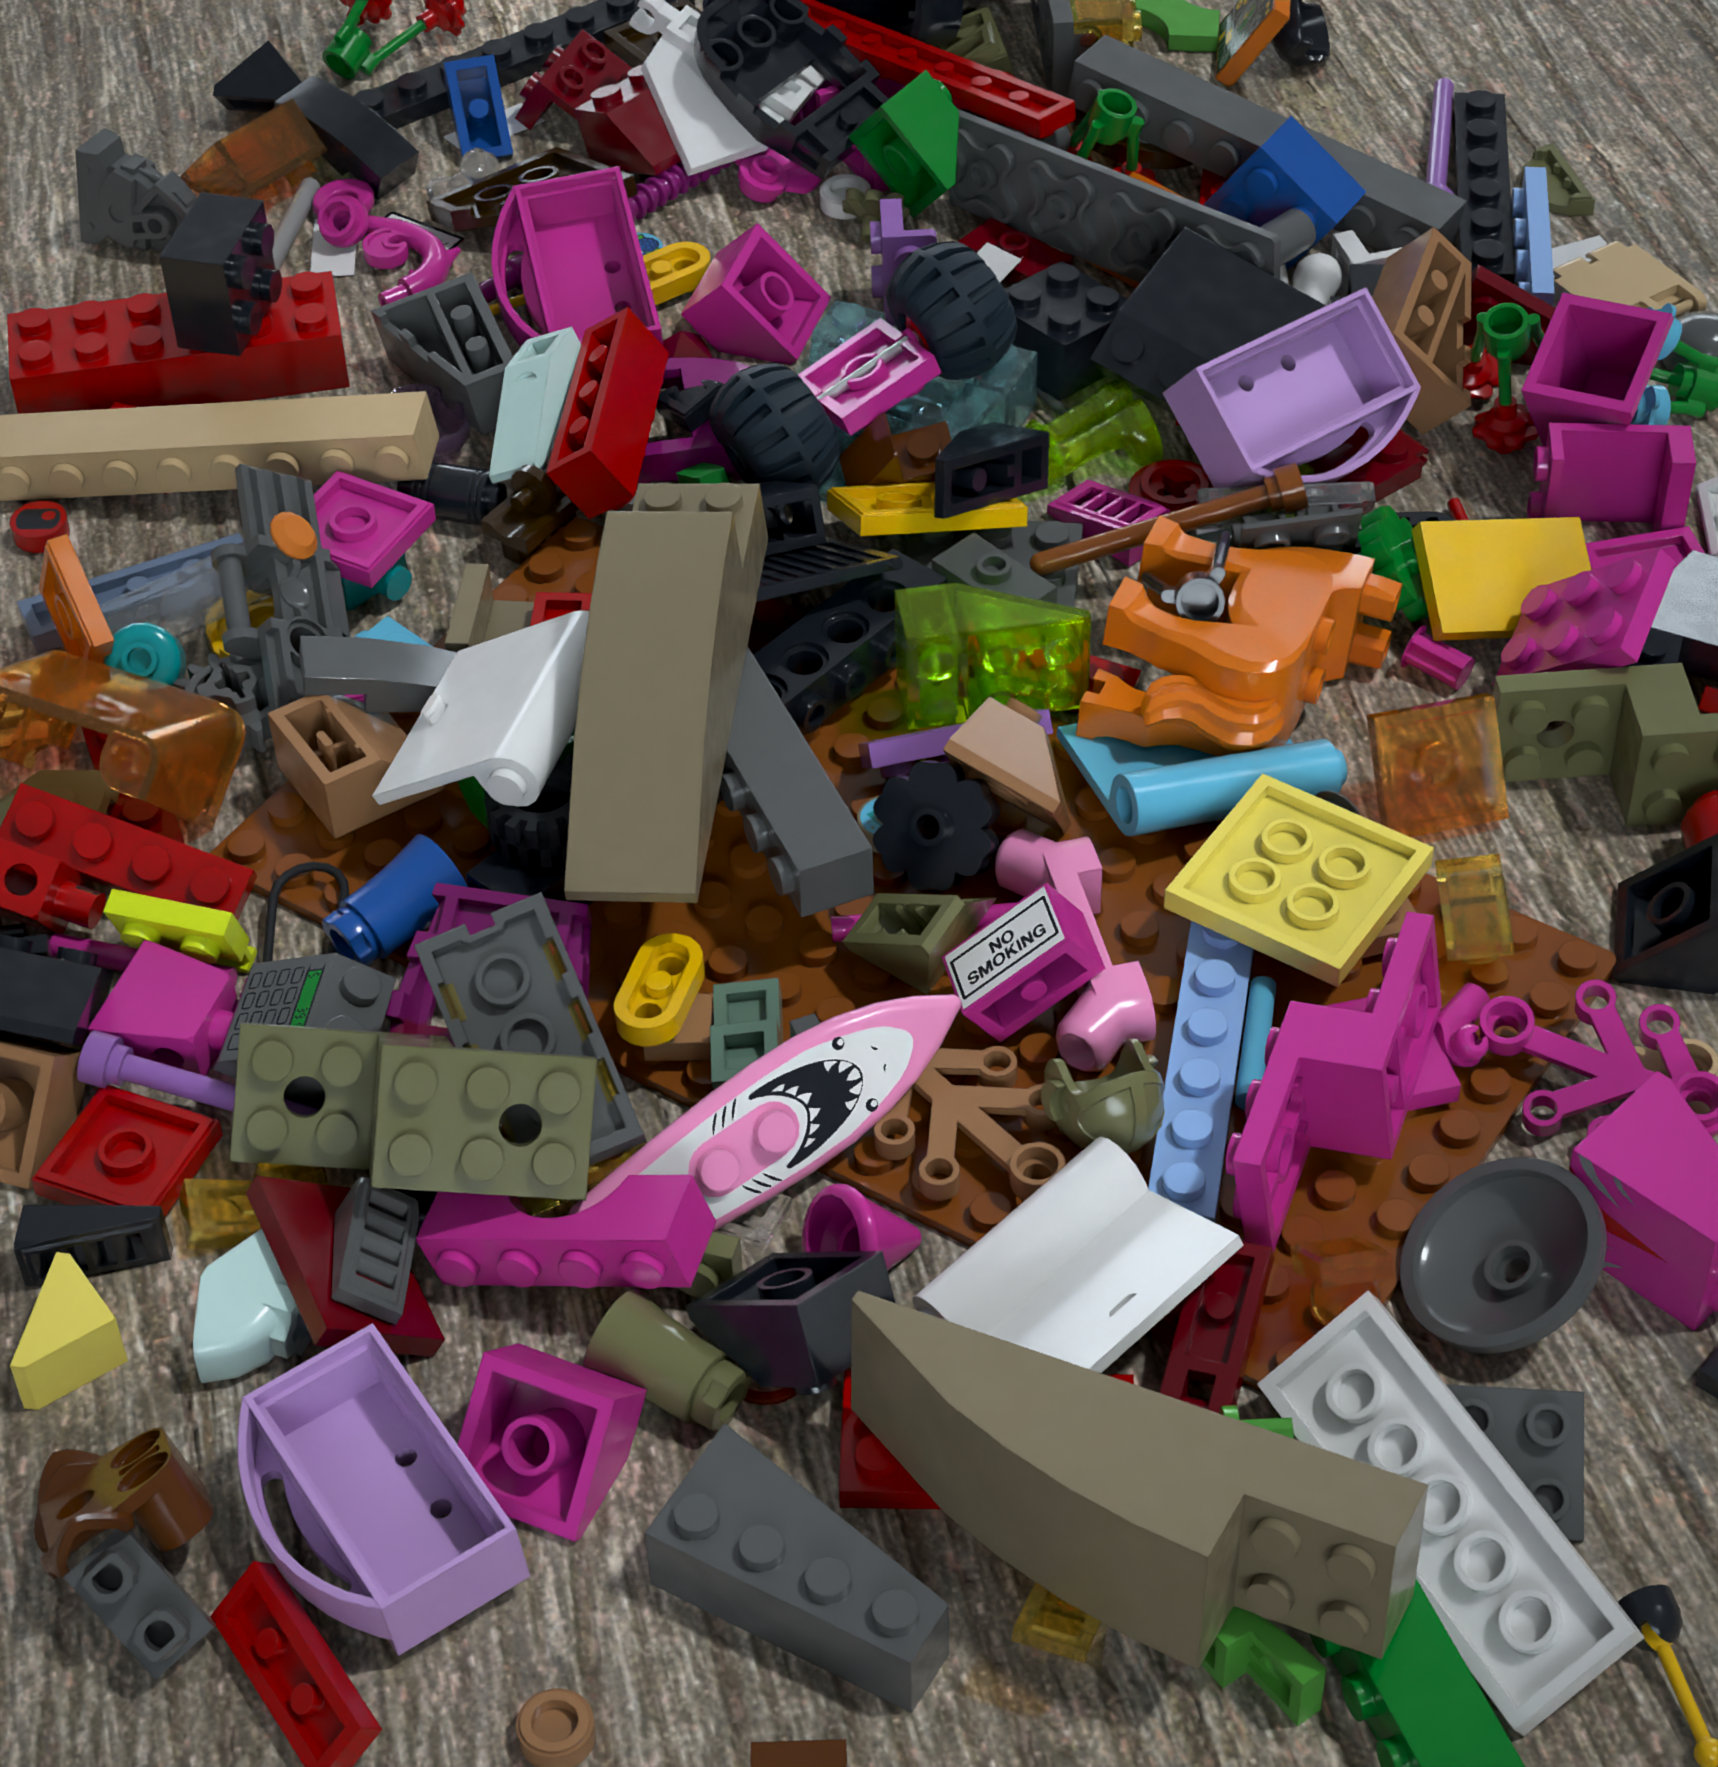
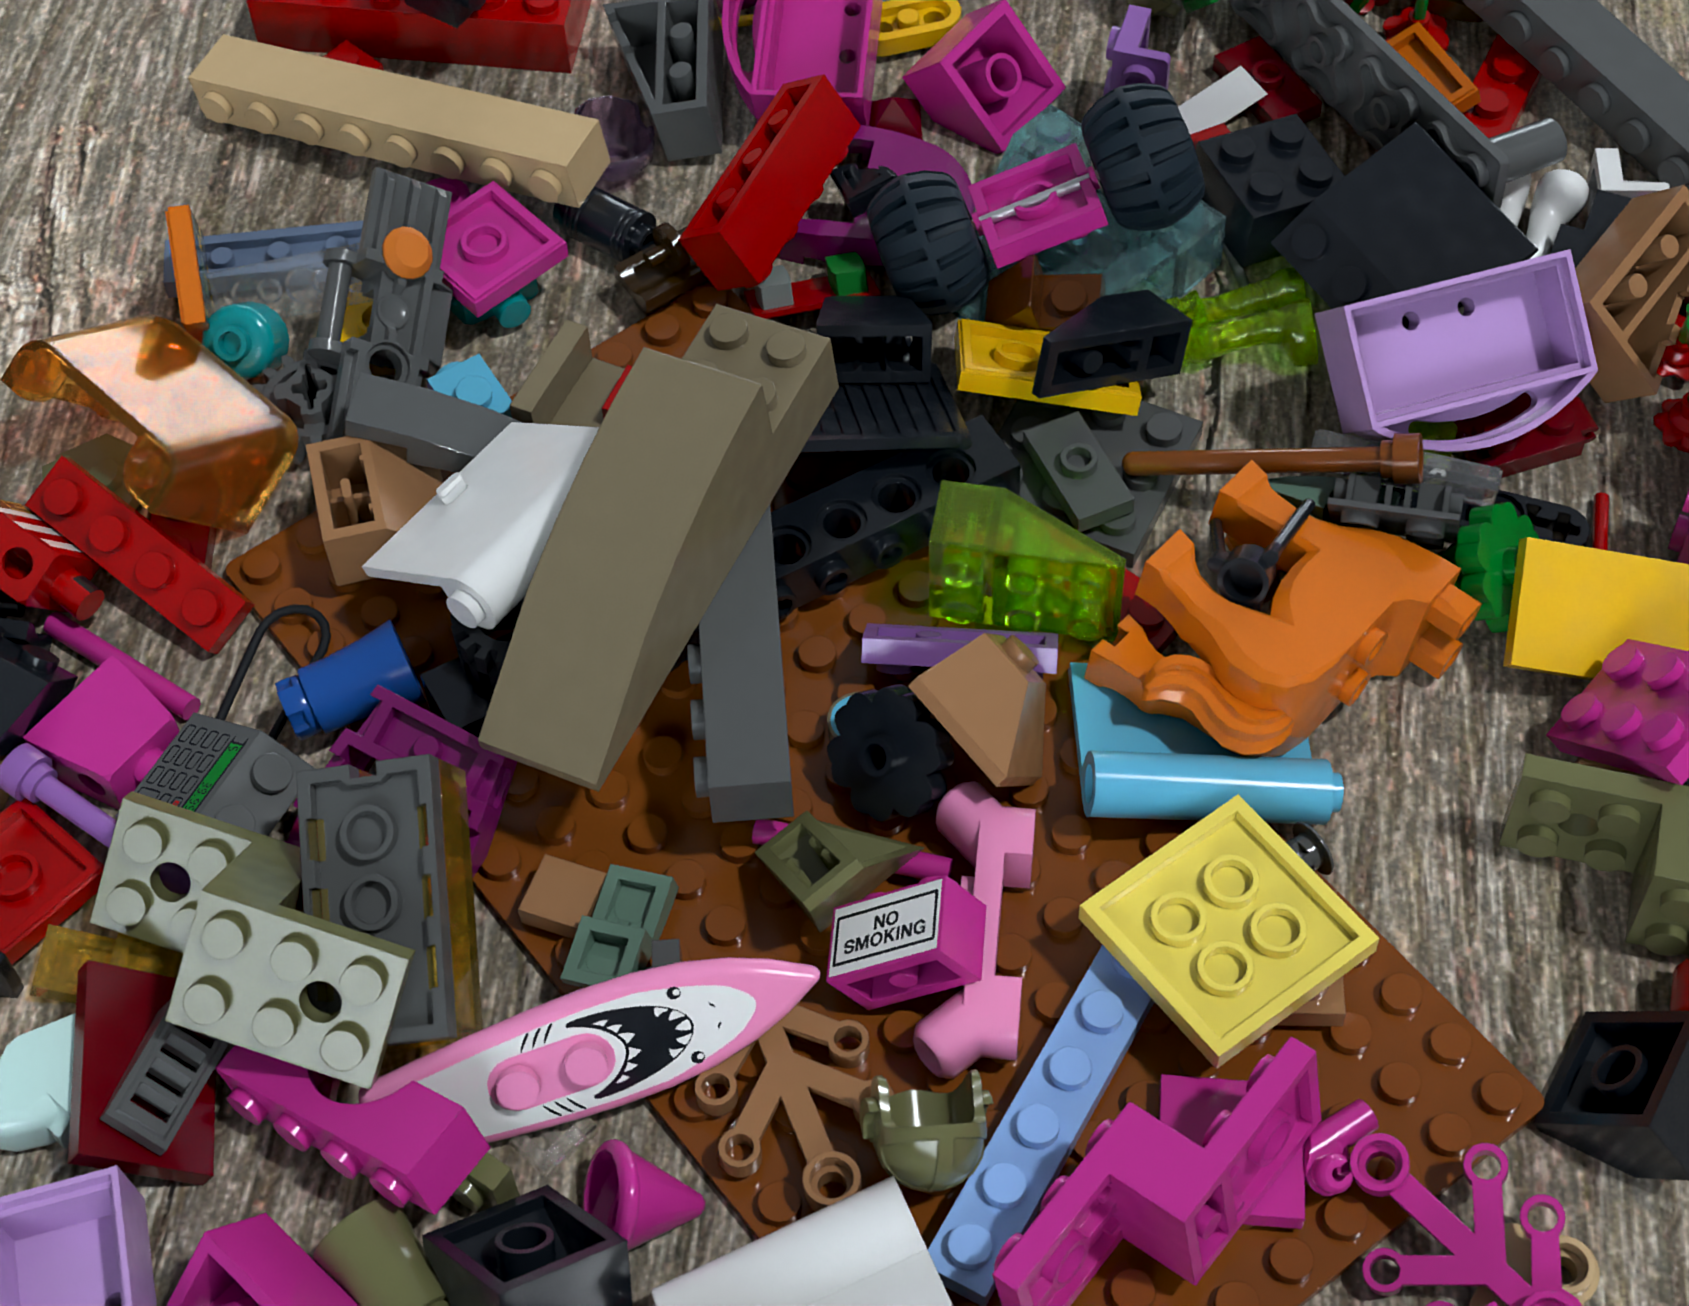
camera: 20 degrees right, 10 degrees up
(37, 523) = (227, 158): red tile -> none
(183, 927) = (165, 662): neon yellow plate -> none
(533, 402) = (704, 150): light aqua slope -> none
(652, 1001) = (544, 863): yellow plate -> none
(1122, 506) = (1258, 417): dark pink slope -> none
(1174, 477) = (1286, 399): red gear -> none
(1256, 1030) = (1123, 1083): medium azure piece -> none
(1285, 175) = (1560, 79): blue brick -> none
(1437, 659) = (1502, 686): dark pink piece -> none
(1438, 765) = (1438, 826): clear orange tile -> none
(1474, 908) = (1405, 1010): clear yellow slope -> none

